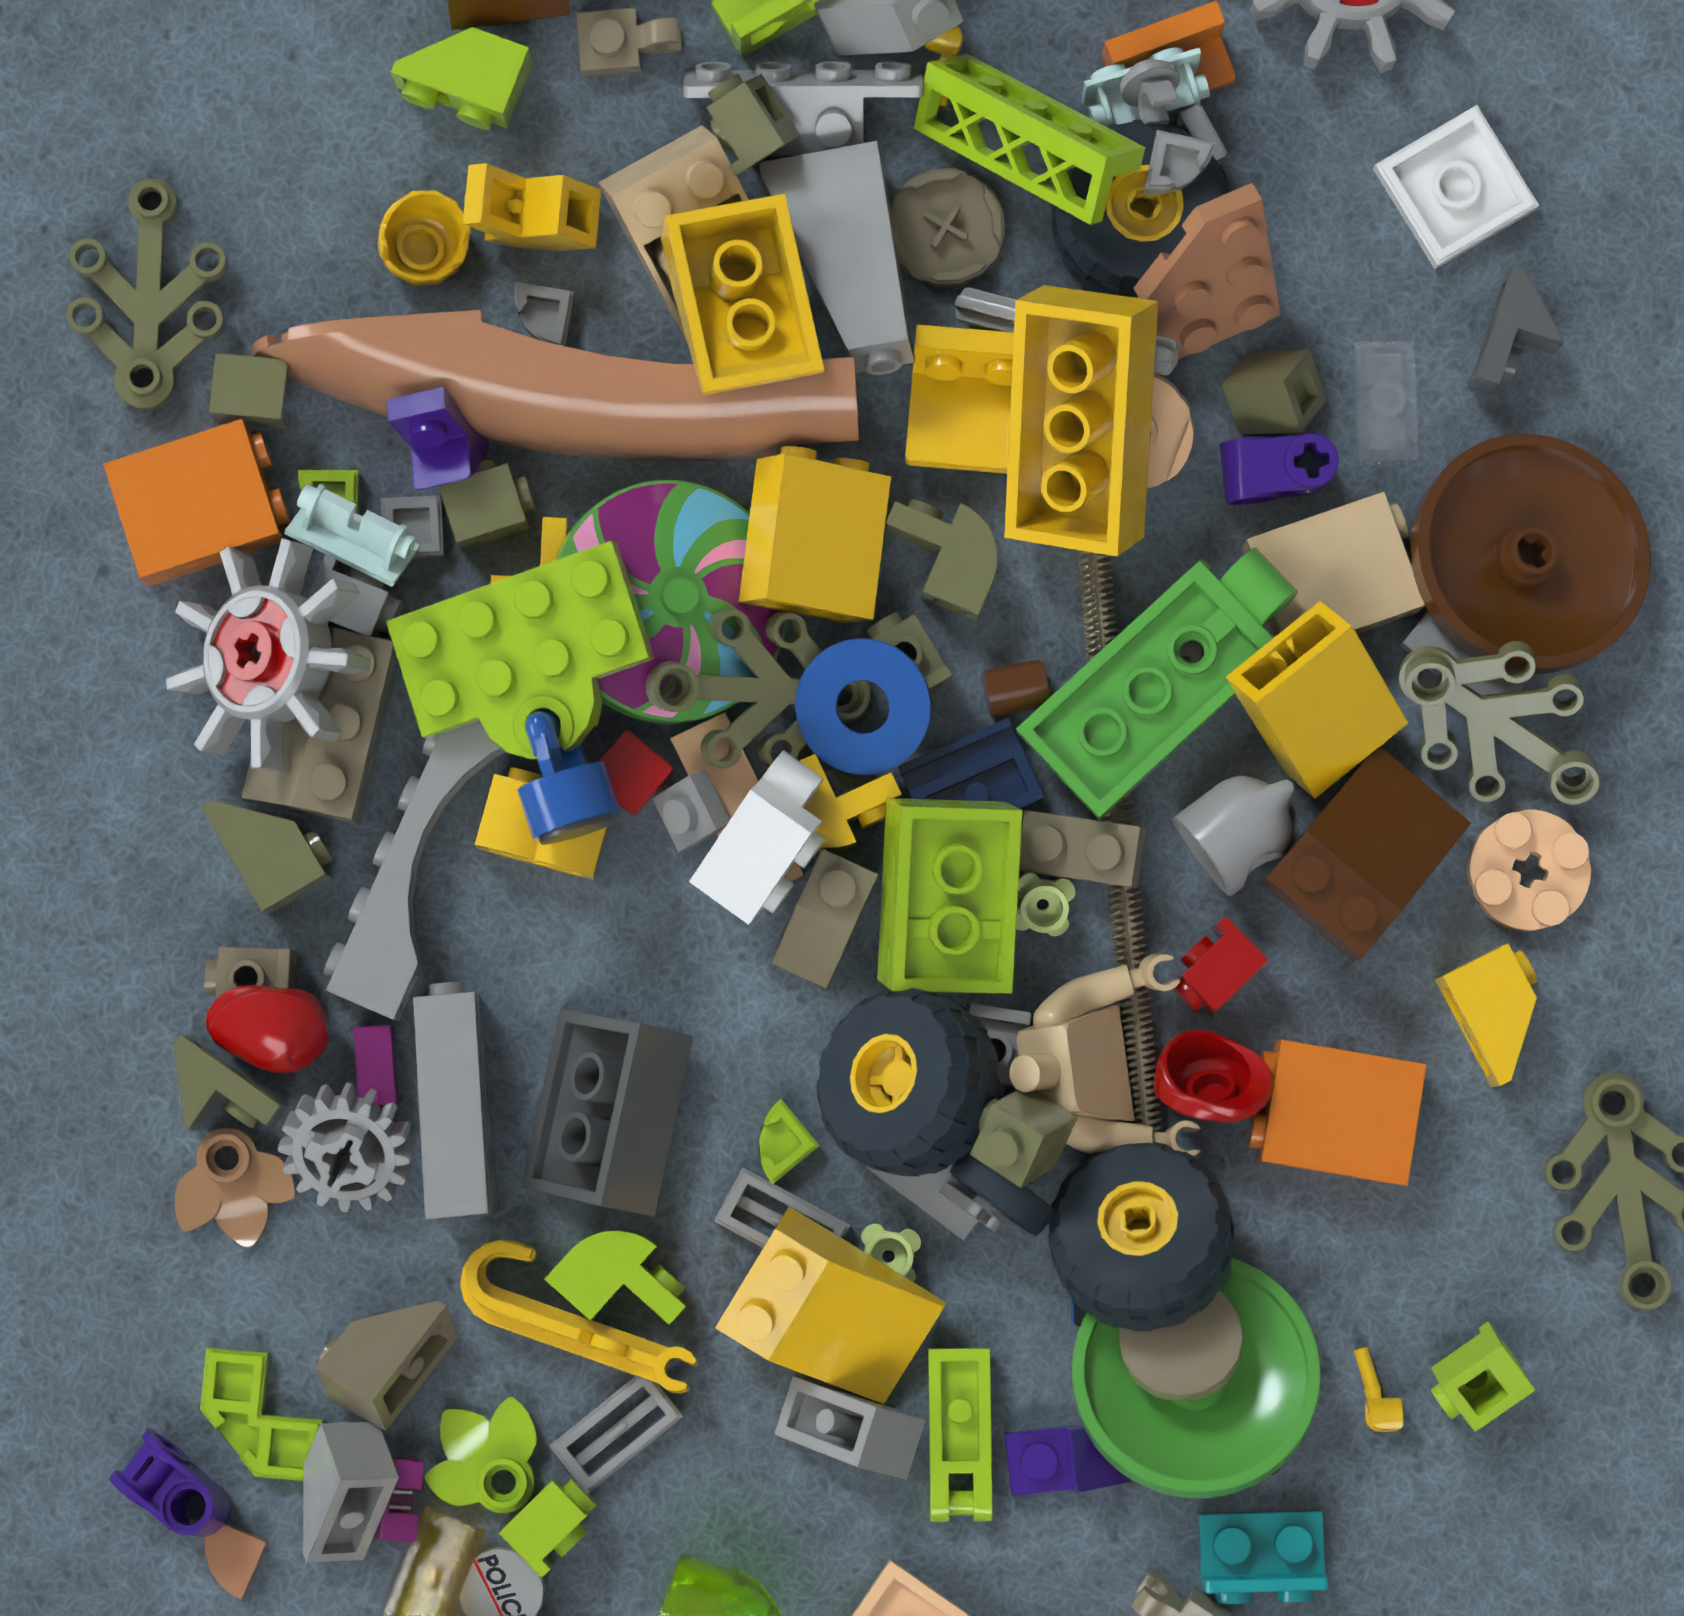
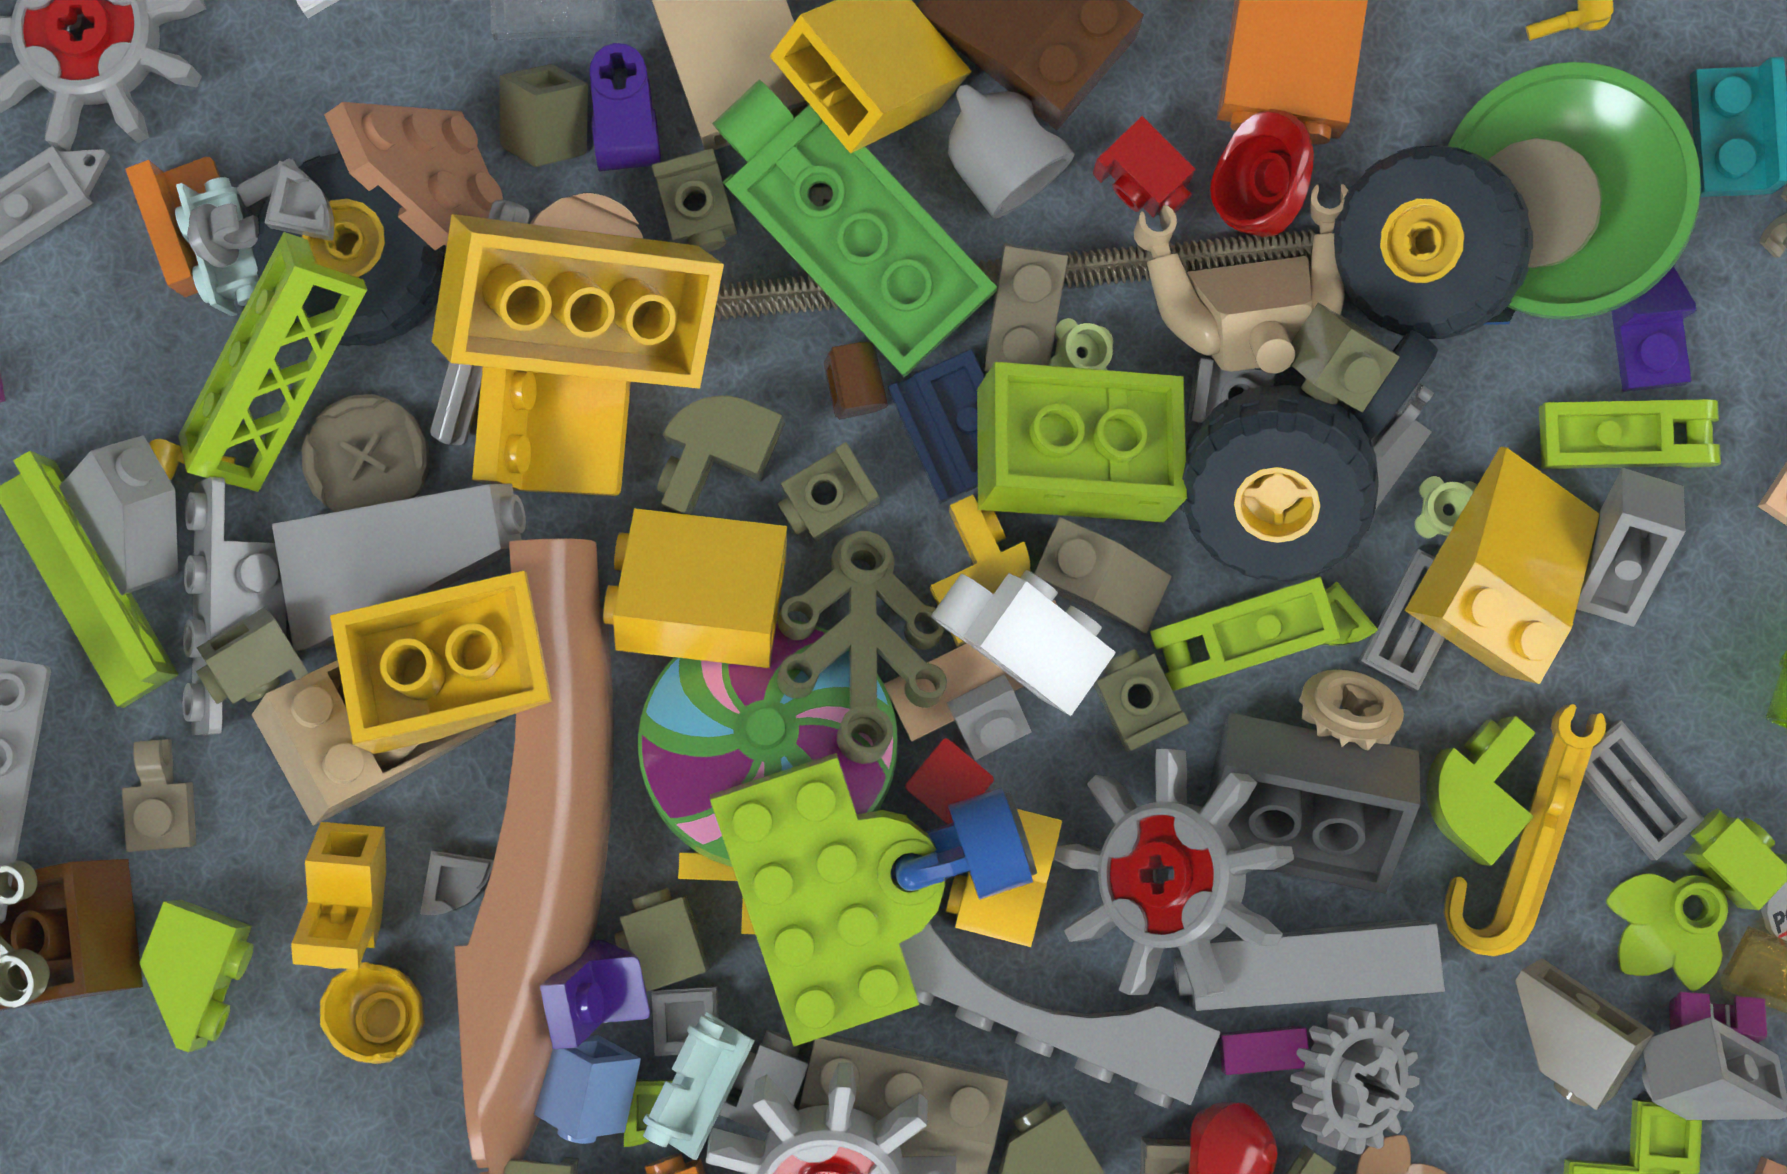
camera: 85 degrees left, 0 degrees up
(350, 436) = (588, 1090): none -> medium blue brick
(539, 974) = (1206, 880): none -> light grey gear
(692, 972) = (1132, 724): none -> olive brick
(710, 1166) = (1361, 695): none -> tan gear
(768, 1058) = (1248, 633): none -> lime plate
(892, 672) = (835, 520): blue gear -> none
(1213, 540) = (689, 177): none -> olive brick

